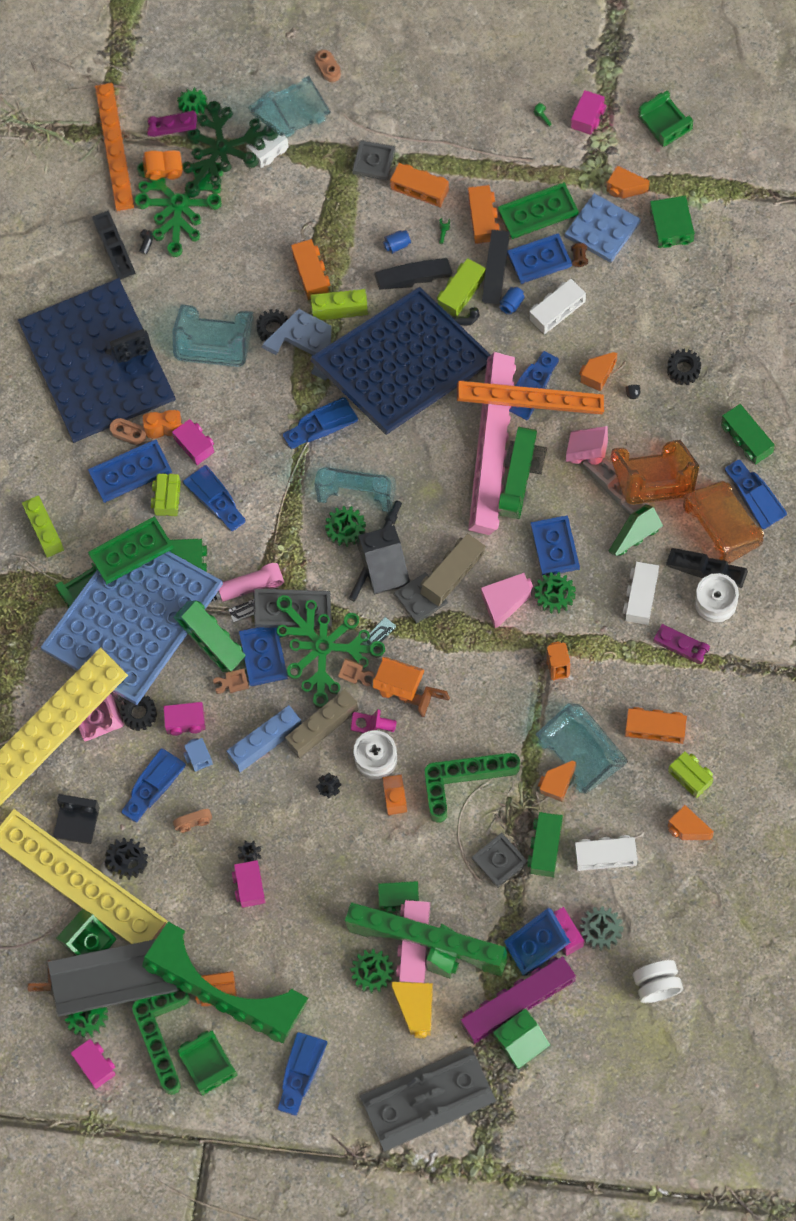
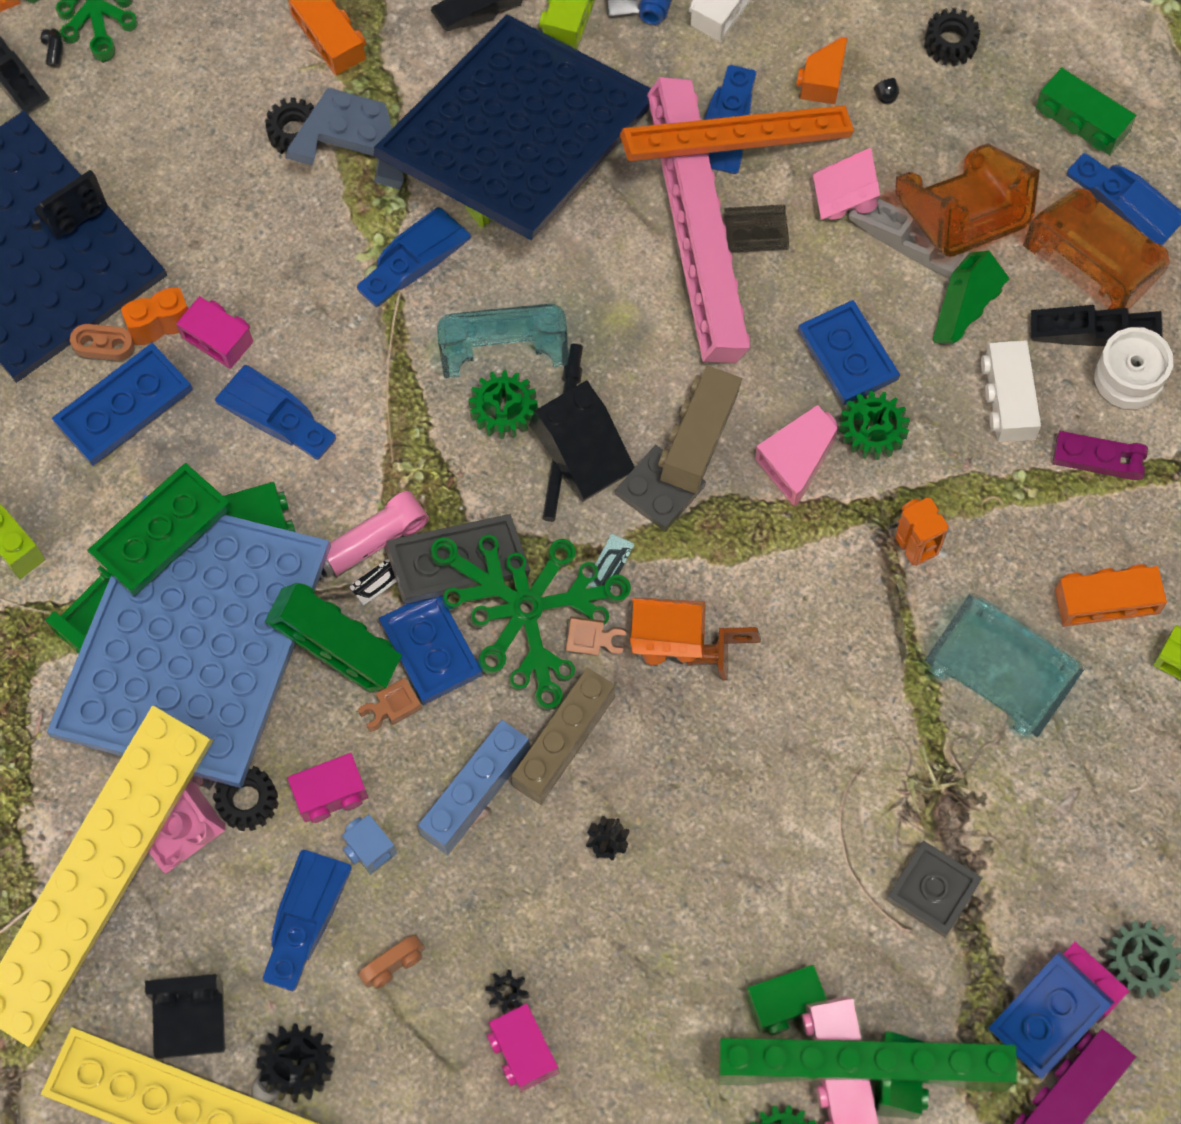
camera: 20 degrees left, 0 degrees up
(166, 494) = (194, 426): lime brick -> none
(211, 340) = (199, 169): clear light blue windscreen -> none
(339, 304) = (390, 67): lime brick -> none
(373, 722) = (648, 712): dark pink bracket -> none
(374, 765) = (652, 768): white wheel -> none
(394, 794) = (722, 823): orange slope -> none
(464, 775) = (827, 759): green beam -> none
(470, 318) = (599, 43): black arm -> none
(512, 500) = (761, 294): green beam -> none
(545, 844) = (1002, 841): green brick -> none
(557, 781) = (984, 730): orange slope -> none
(605, 853) = (1105, 828): white brick -> none

